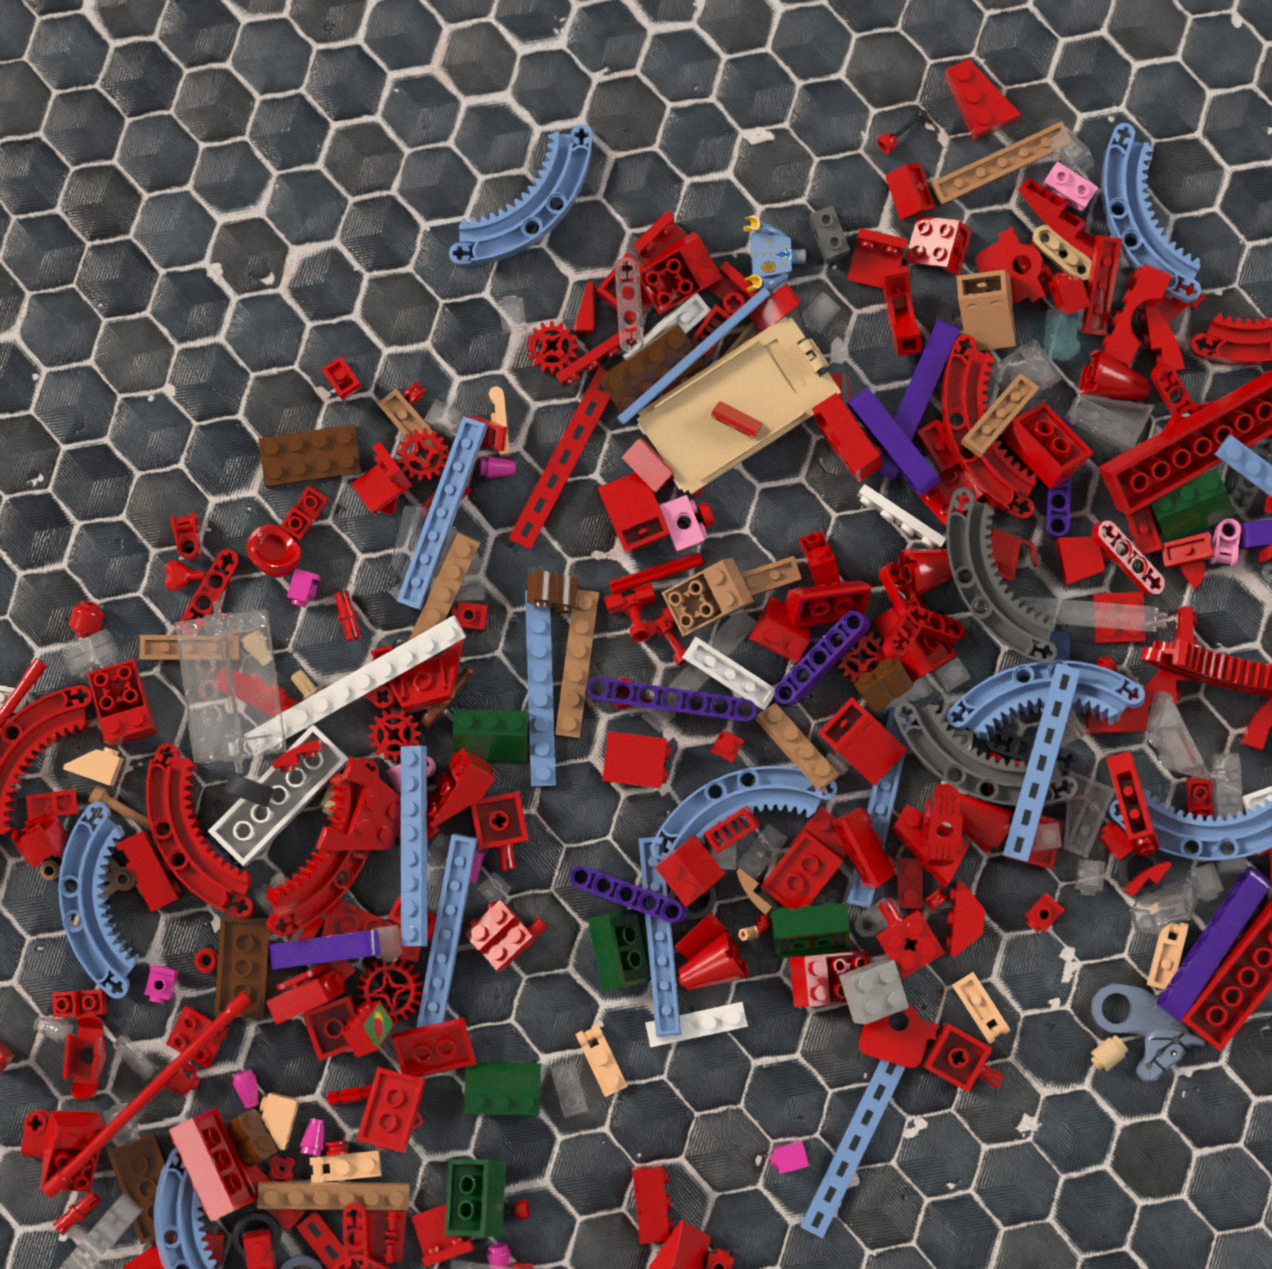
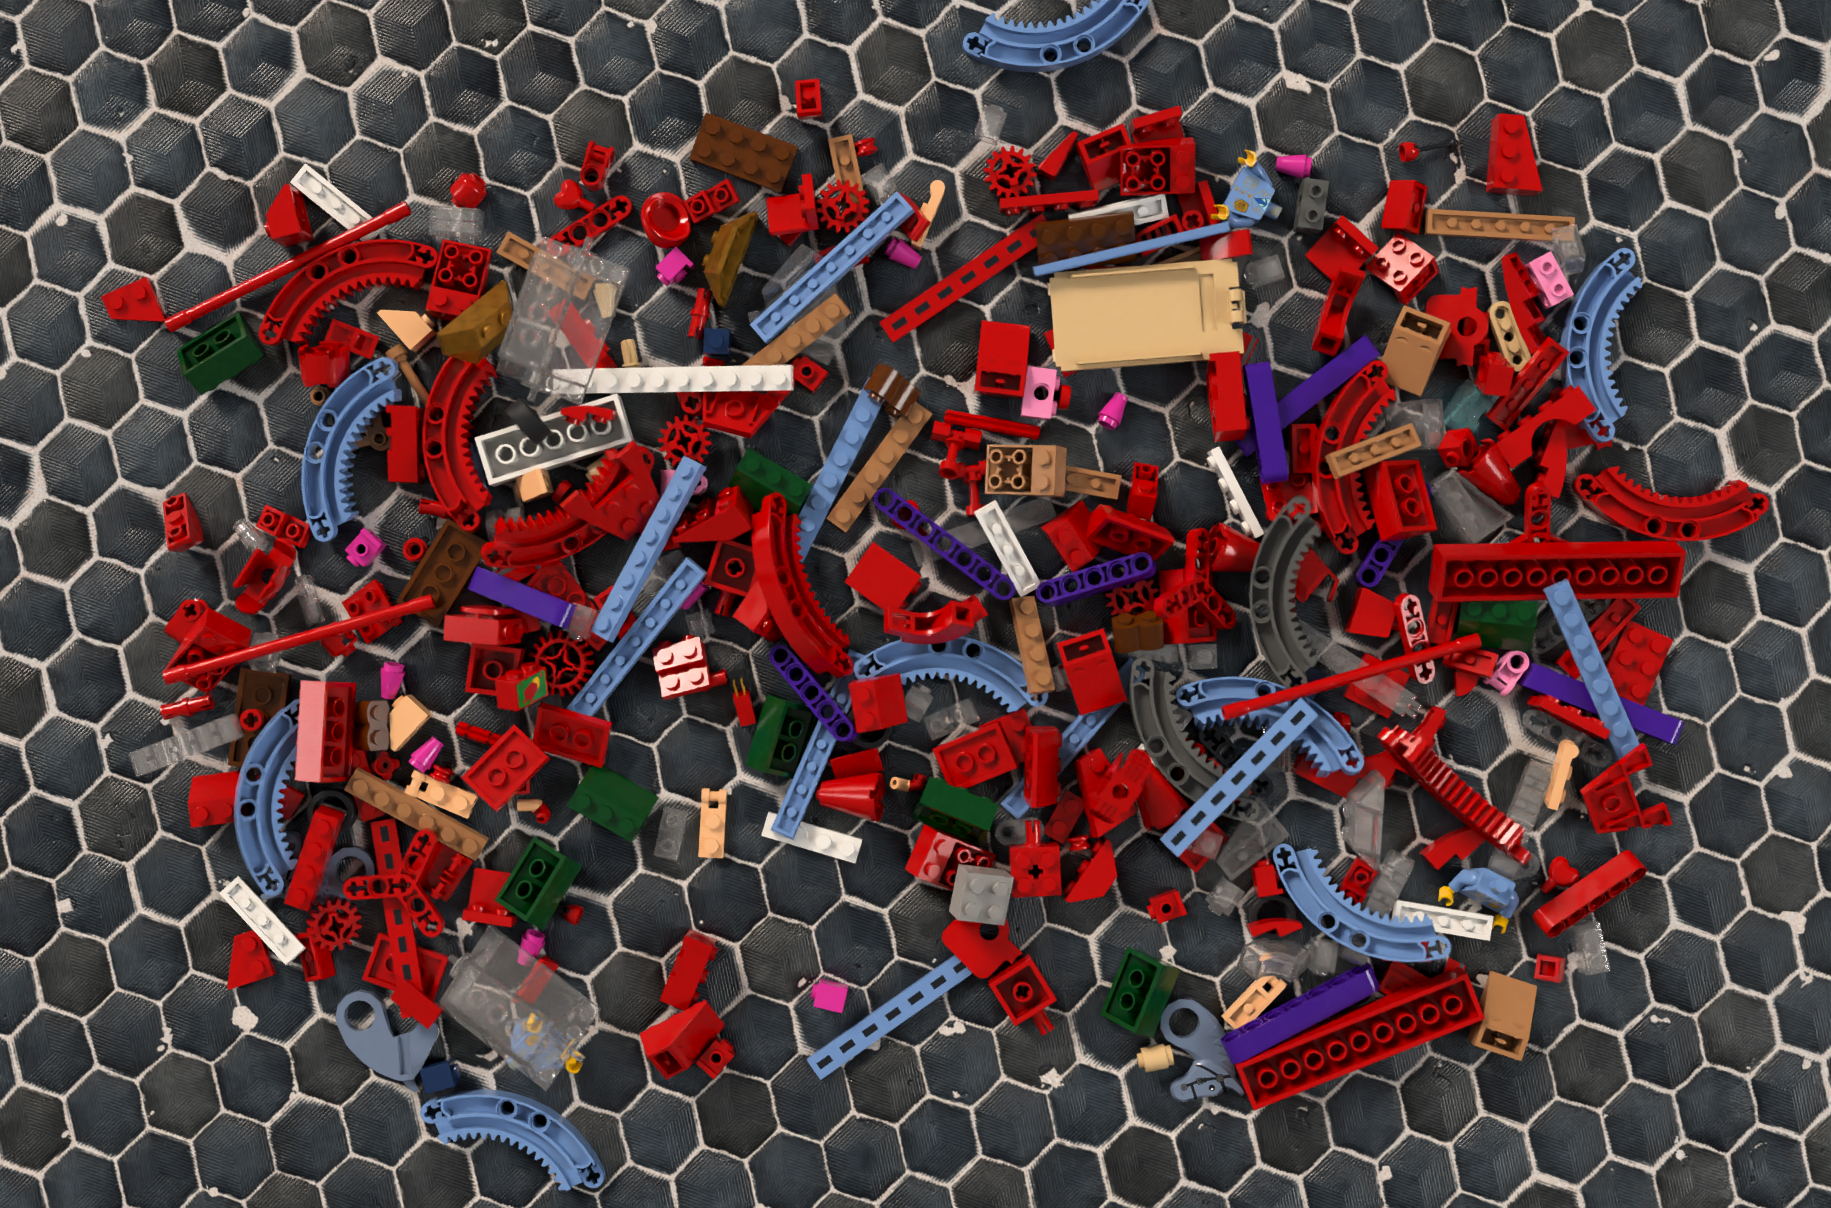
camera: 25 degrees right, 5 degrees up
(134, 1189) = (247, 714): none -> red bush
(161, 731) = (479, 327): none -> pearl gold wedge
(208, 912) = (436, 508): none -> red pin
(282, 846) = (534, 486): none -> light nougat slope
(309, 837) = (562, 491): none -> red tile
(344, 551) = (727, 255): none -> pearl gold wedge
(376, 632) = (717, 342): none -> dark blue brick
(437, 709) = (734, 440): copper piece -> none
(437, 1132) = (537, 807): none -> arm
(545, 843) = (756, 615): none -> red slope
(558, 816) = (789, 595): none -> red gear
(568, 934) = (742, 699): none -> piece
(624, 305) = (1102, 174): clear beam -> none
(648, 465) = (1037, 325): panel -> none
(701, 778) = (931, 627): none -> red arch
(736, 419) = (1137, 327): red slope -> none
(748, 885) = (923, 743): medium nougat slope -> none
(753, 822) = (956, 686): red slope -> none
(755, 505) = (1113, 411): none -> dark pink cone
(795, 207) = (1294, 165): none -> dark pink cone
(980, 1006) = (1066, 956): light nougat plate -> none
(1012, 698) = (1244, 707): none -> red piece
(1062, 1002) = (1140, 992): none -> dark green slope
(1072, 372) = (1458, 447): none -> red brick
(1133, 804) = (1298, 856): red slope -> none

